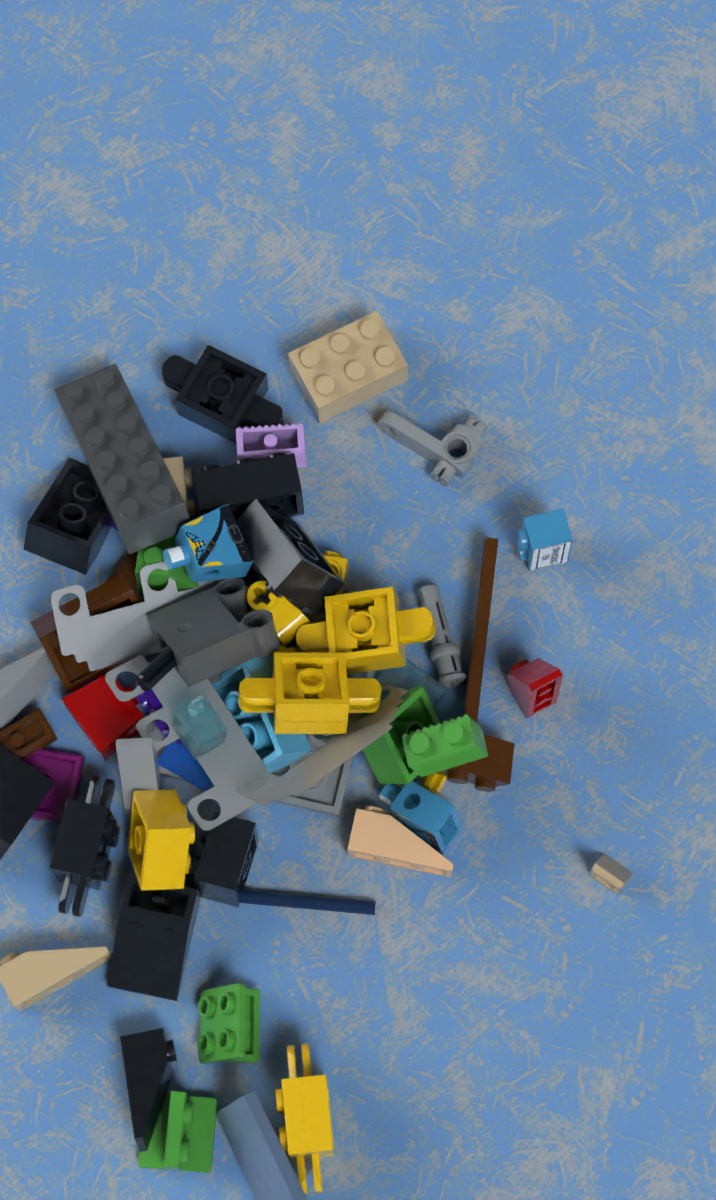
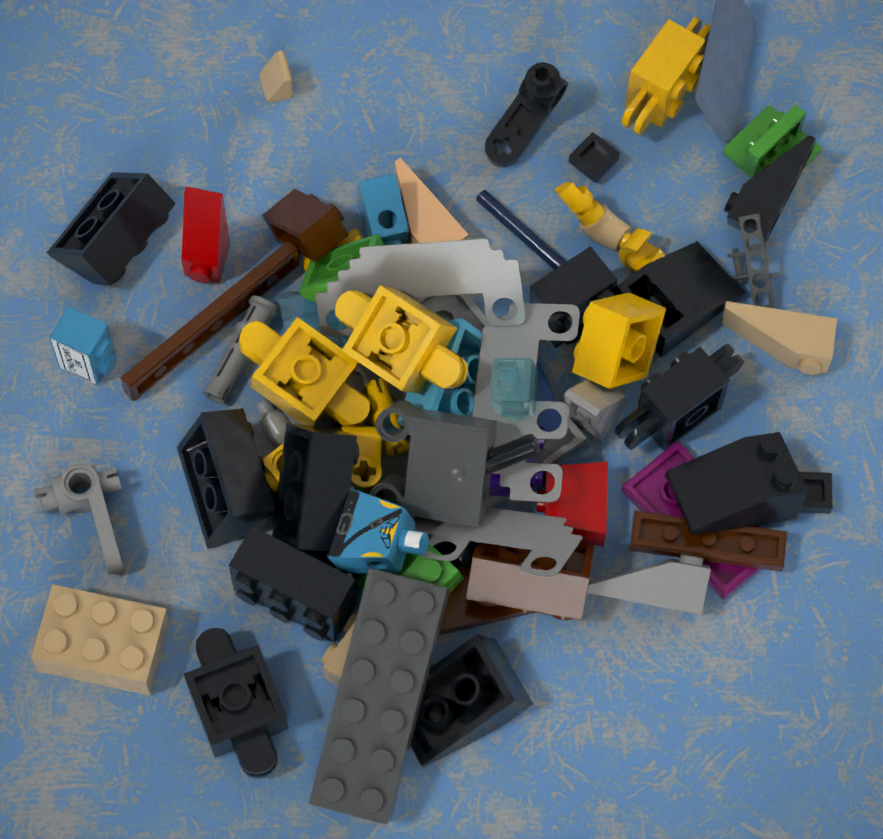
camera: 145 degrees left, 5 degrees down
(117, 1006) = (748, 255): none -> dark grey piece
(229, 1025) = (672, 188): bright green bracket -> none
(246, 950) = (608, 229): none -> yellow piece
(261, 442) = (236, 613): lavender brick -> none
(311, 1007) = (594, 157): none -> black plate
(361, 533) = (225, 476): none -> black slope
(391, 995) = (527, 113): none -> black piece
(444, 746) = (328, 216): bright green brick -> none
(617, 651) = (113, 227): none -> black slope

